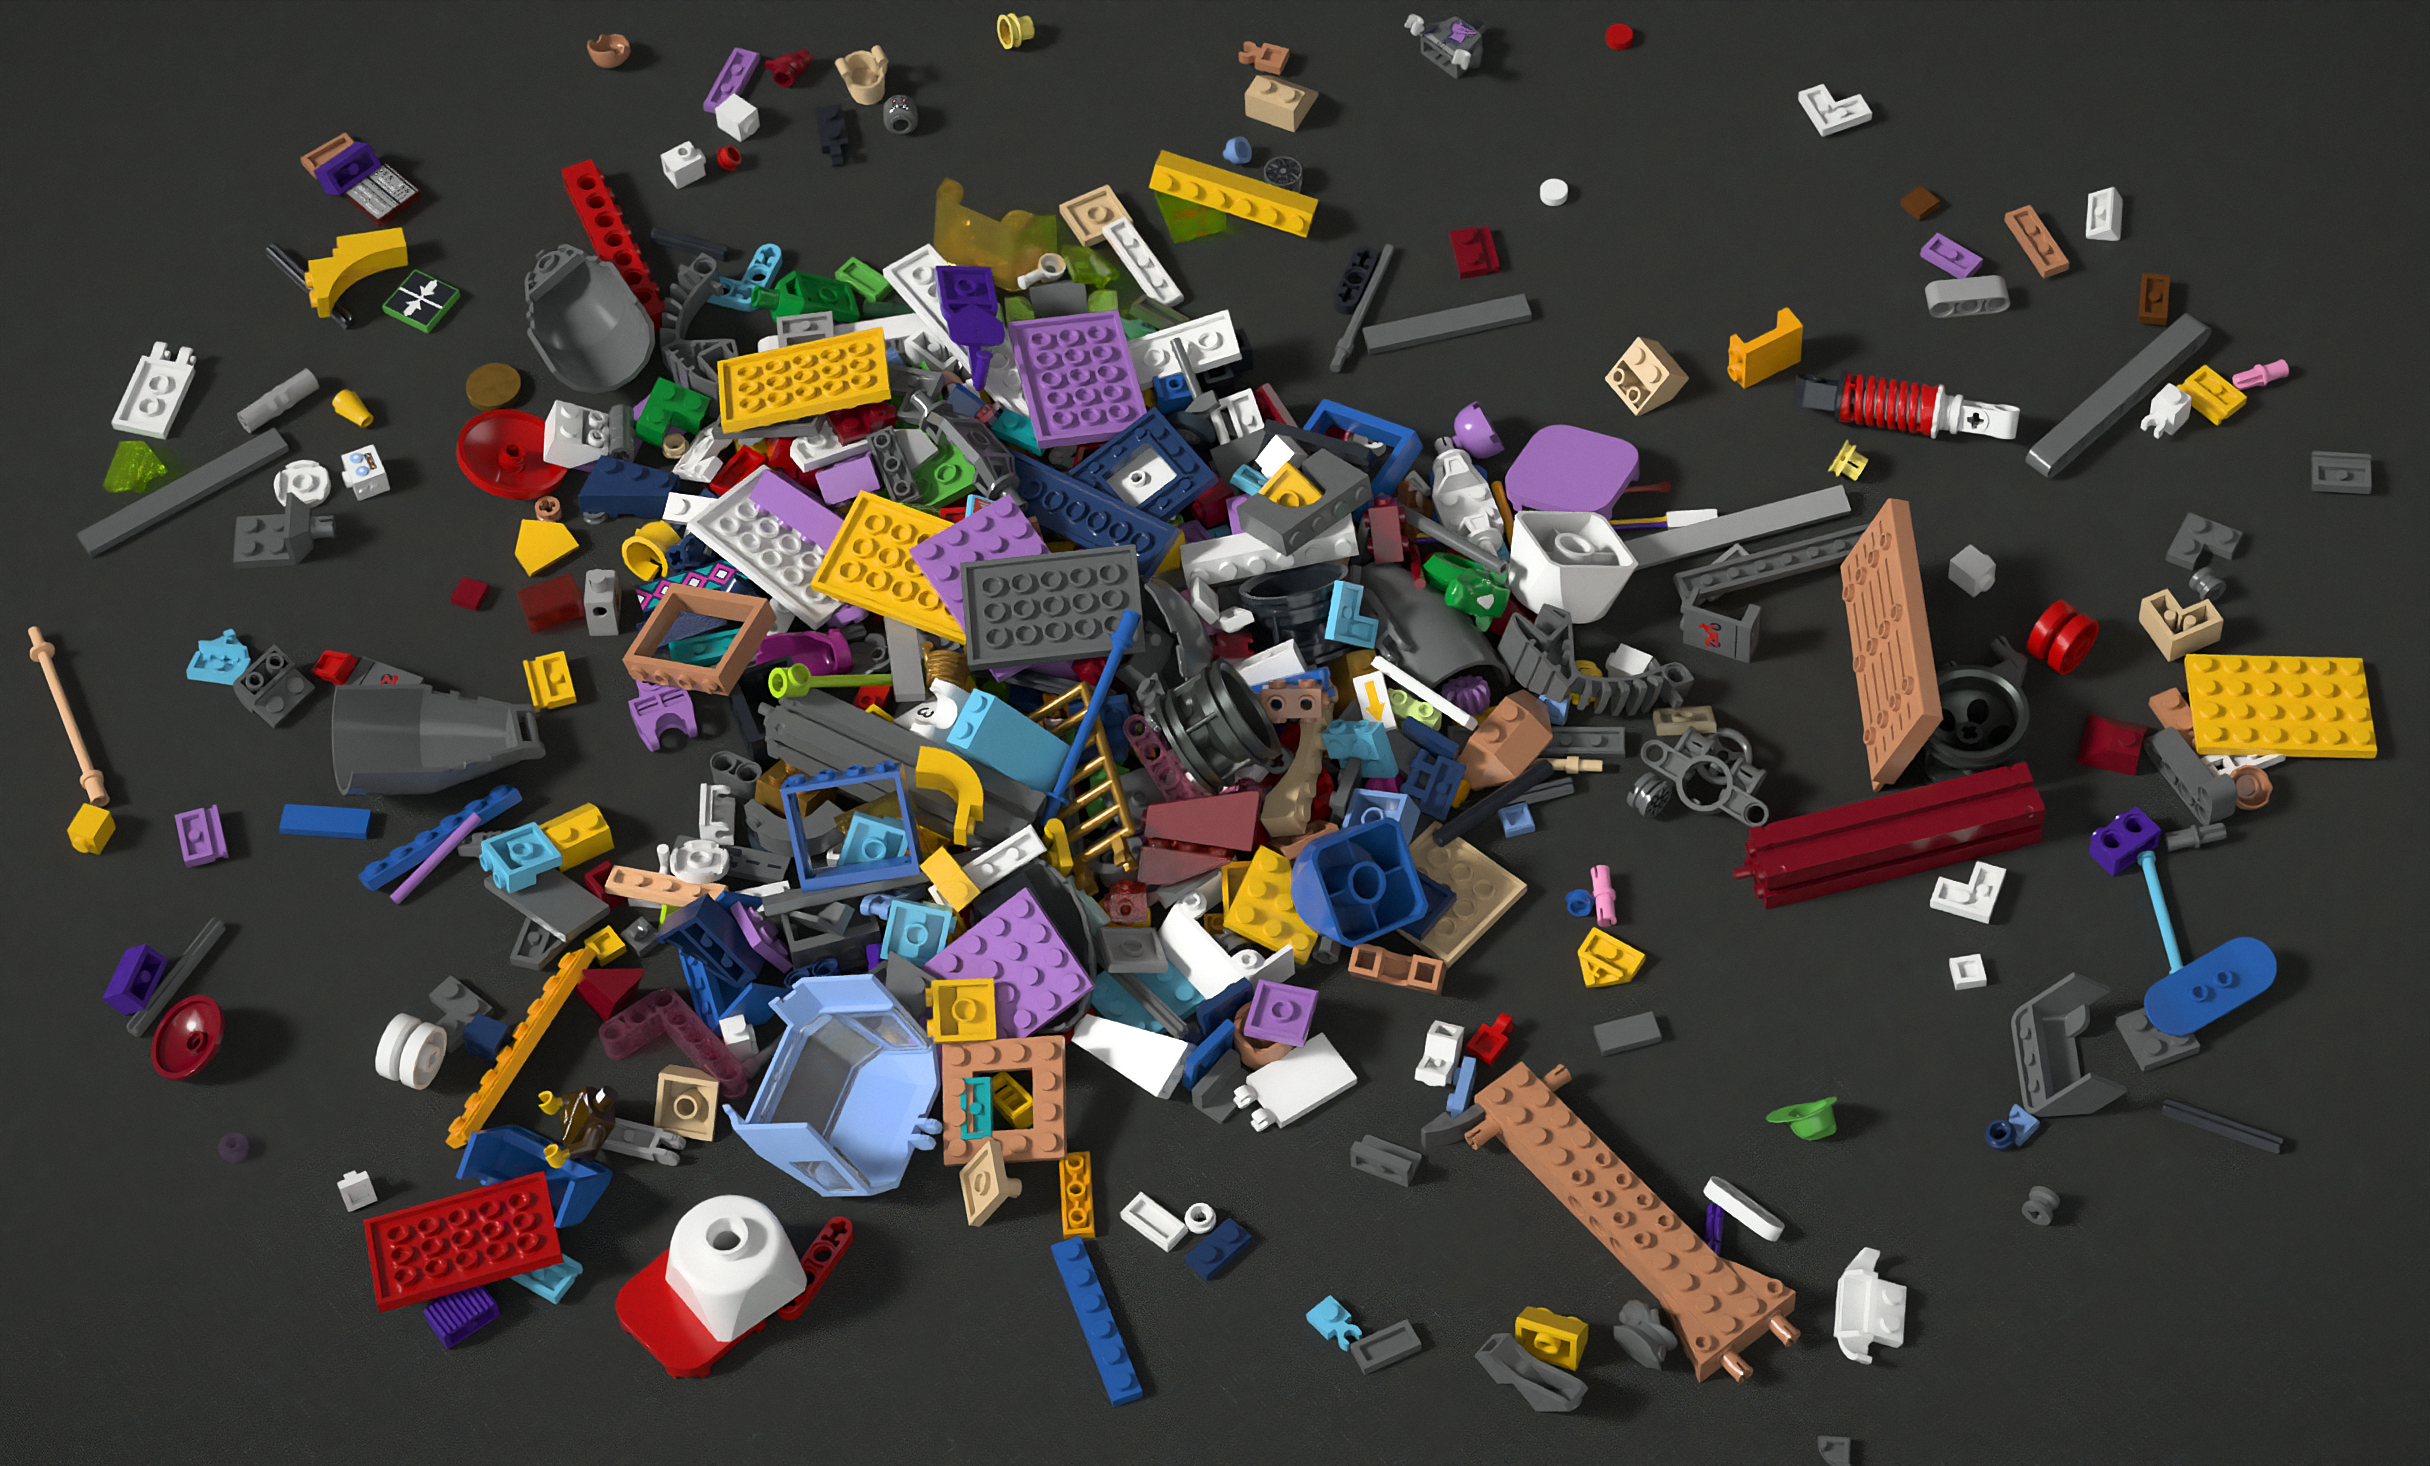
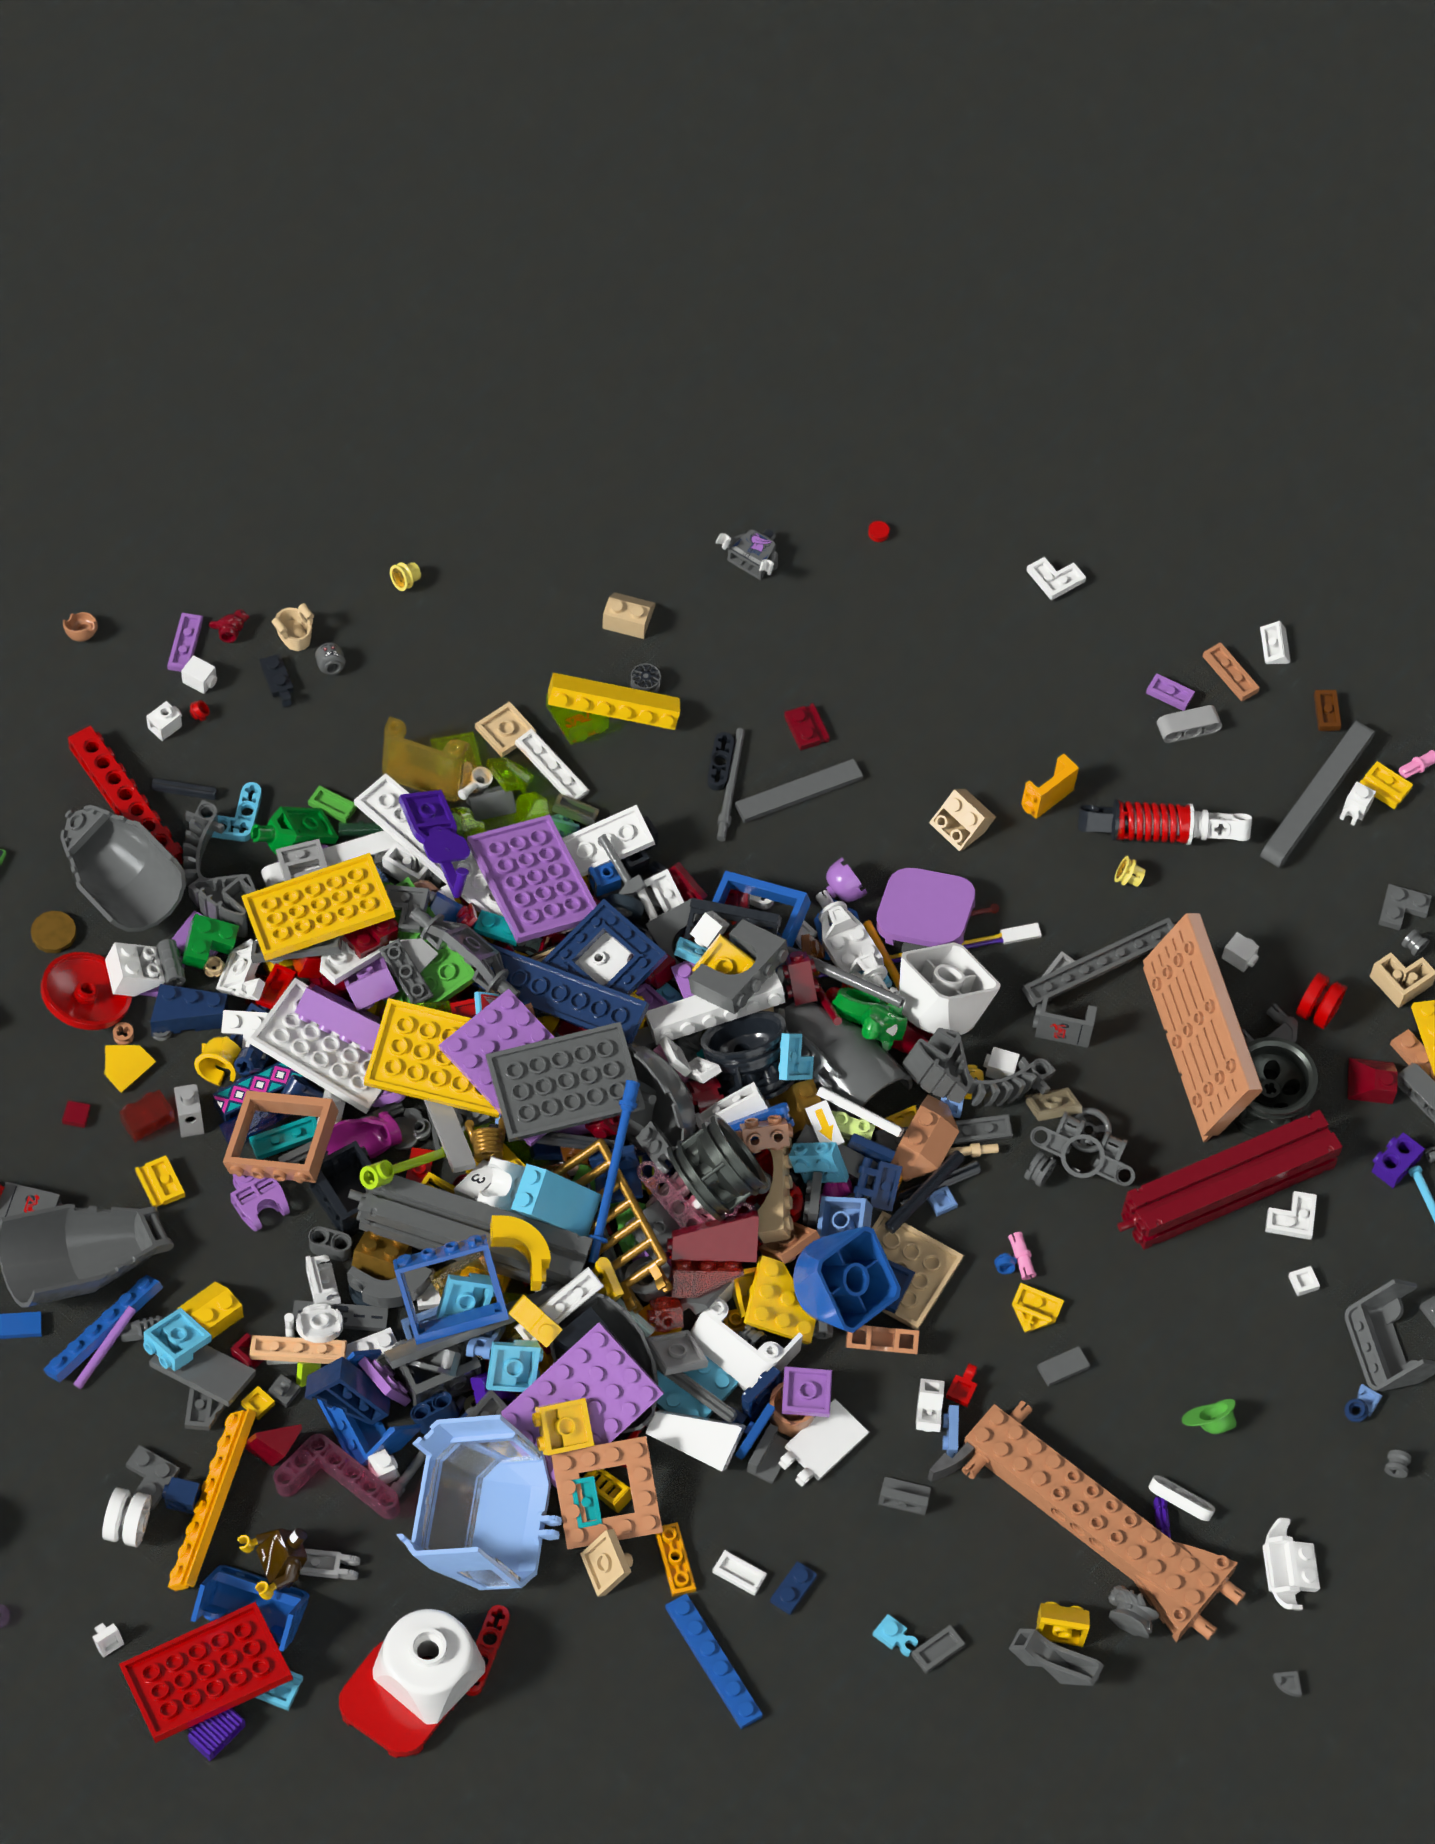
camera: 20 degrees left, 5 degrees up
(686, 1102) = (355, 1527): tan slope -> none
(908, 984) = (516, 1408): dark grey wing -> none
(1197, 1211) = (774, 1558): white plate -> none
(1238, 151) = (605, 661): medium blue tile -> none
(1267, 59) = (611, 578): nougat plate -> none
(1468, 694) = (886, 1104): medium lavender gear -> none
(1554, 192) = (857, 669): white tile -> none
(1739, 527) = (1059, 935): light grey tile -> none
(1920, 203) = (1136, 648): reddish brown tile -> none

